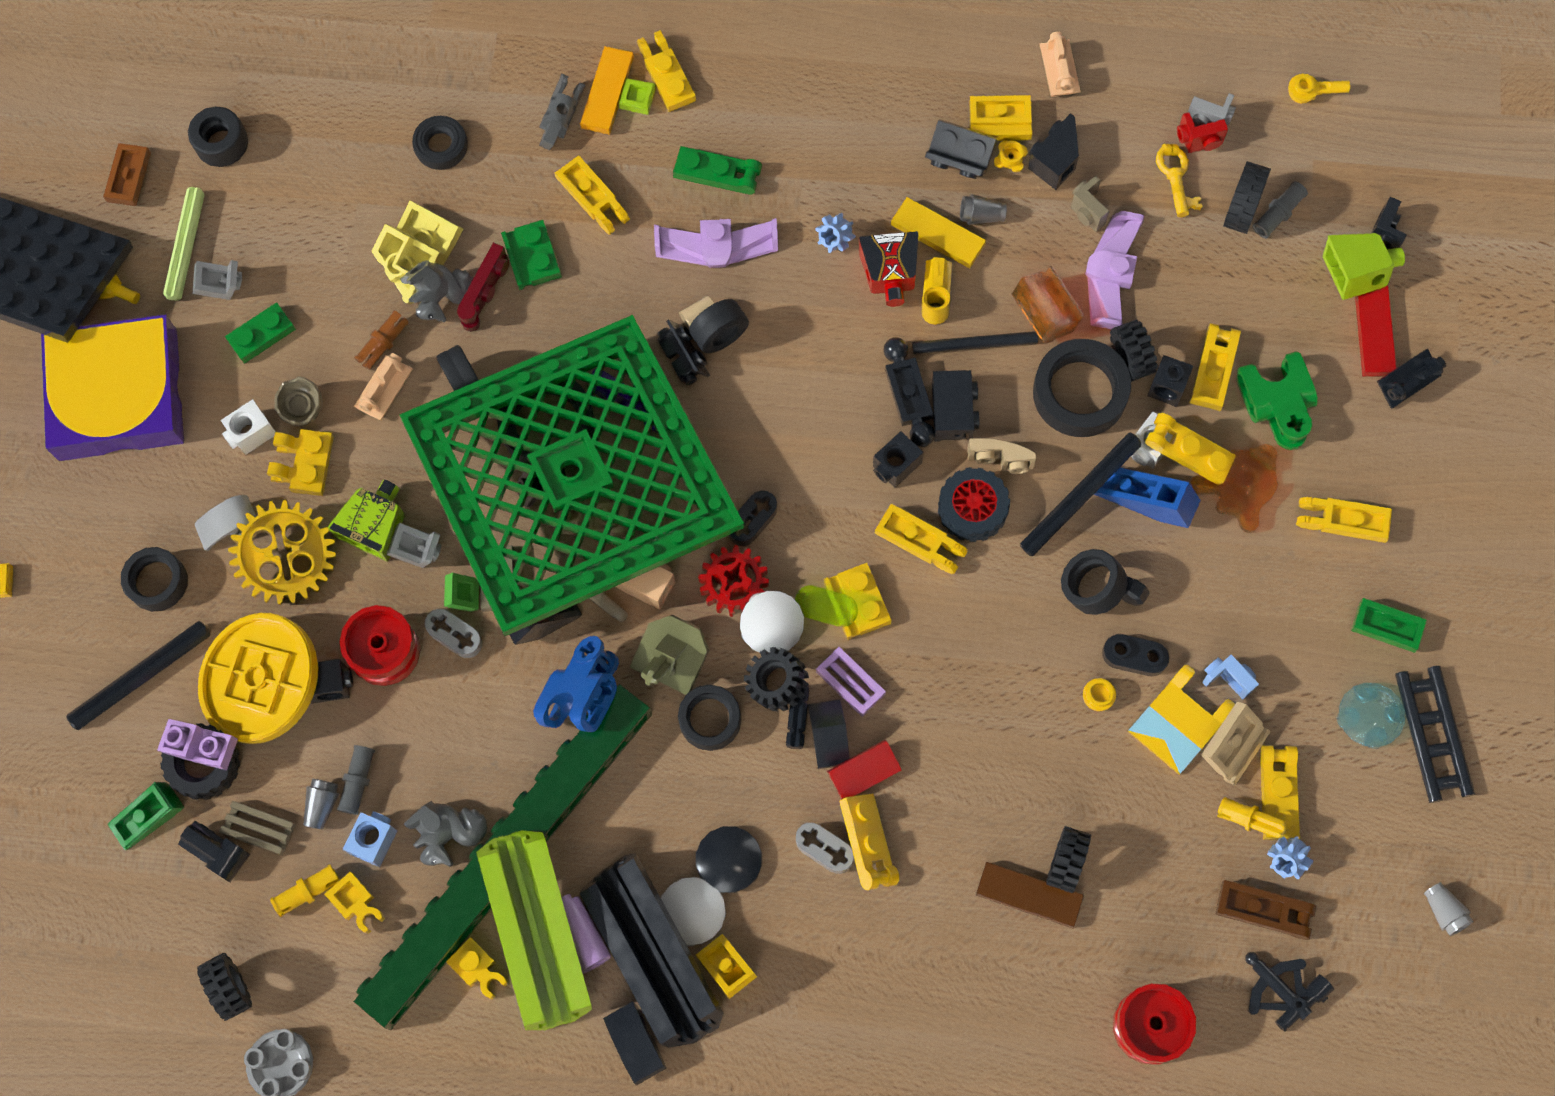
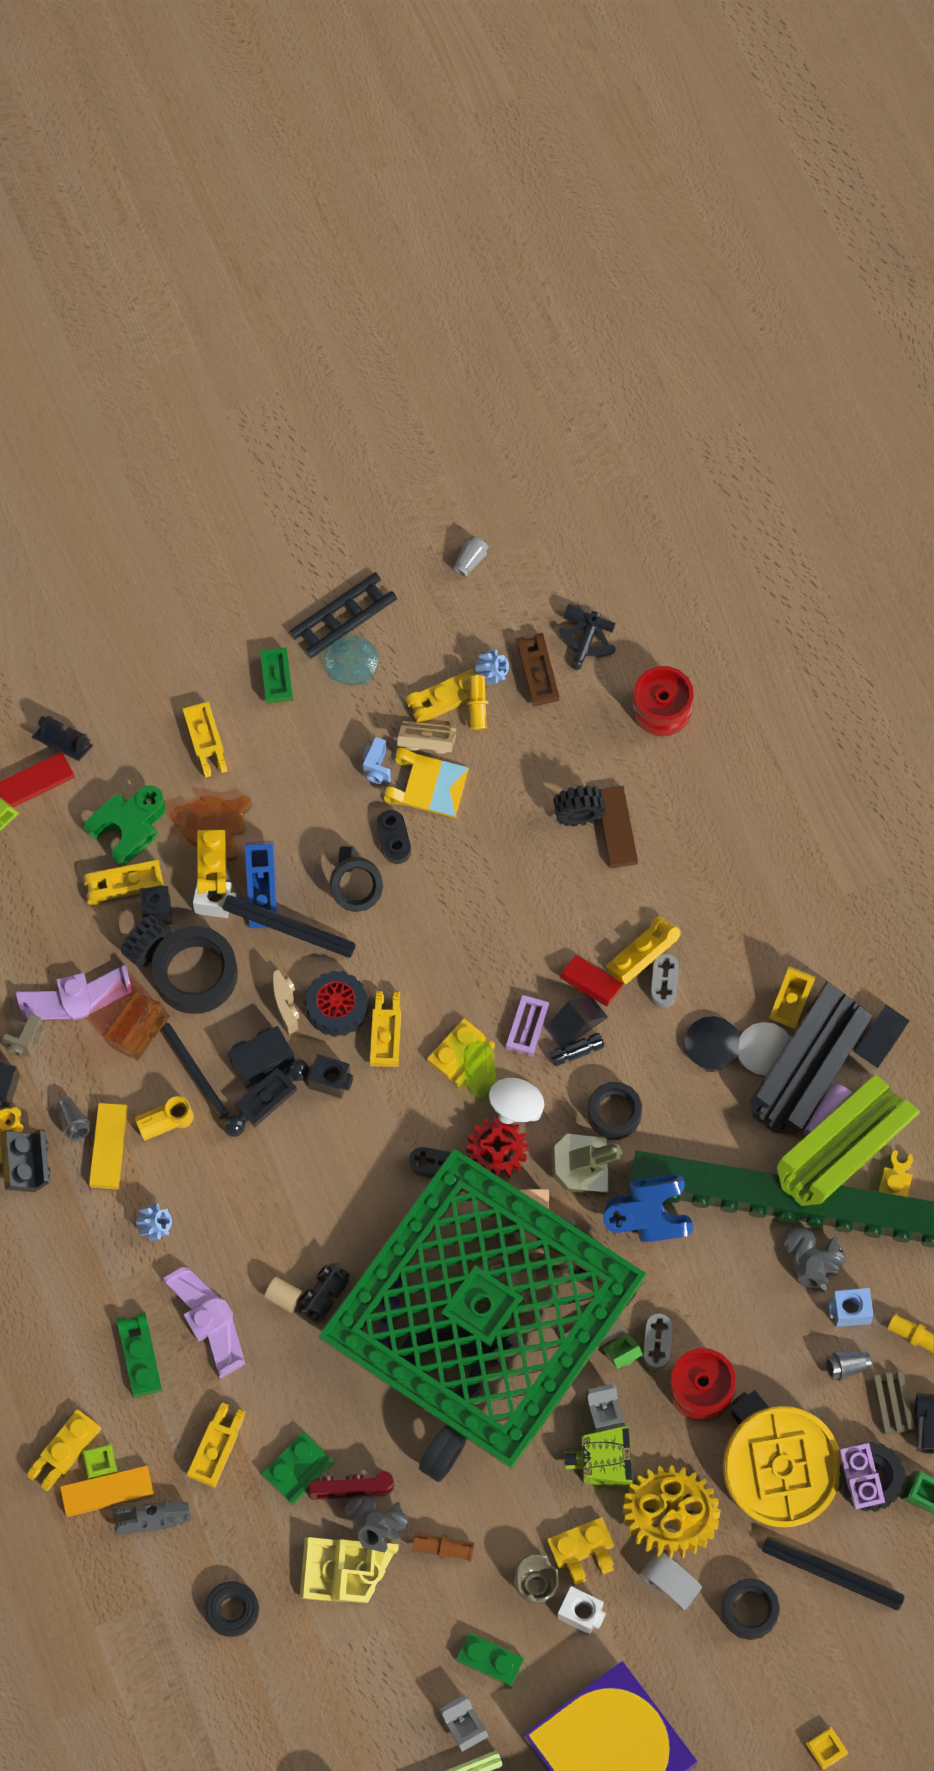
camera: 120 degrees left, 5 degrees down
(351, 899) = (903, 1296): yellow plate -> none
(356, 780) = (814, 1347): dark grey pin -> none
(383, 387) = (483, 1522): light nougat hinge -> none
(719, 326) = (289, 1266): black tyre -> none
(764, 667) = (576, 1078): black tyre -> none
(890, 264) = (160, 1164): torso -> none
(1099, 694) = (439, 847): yellow plate -> none

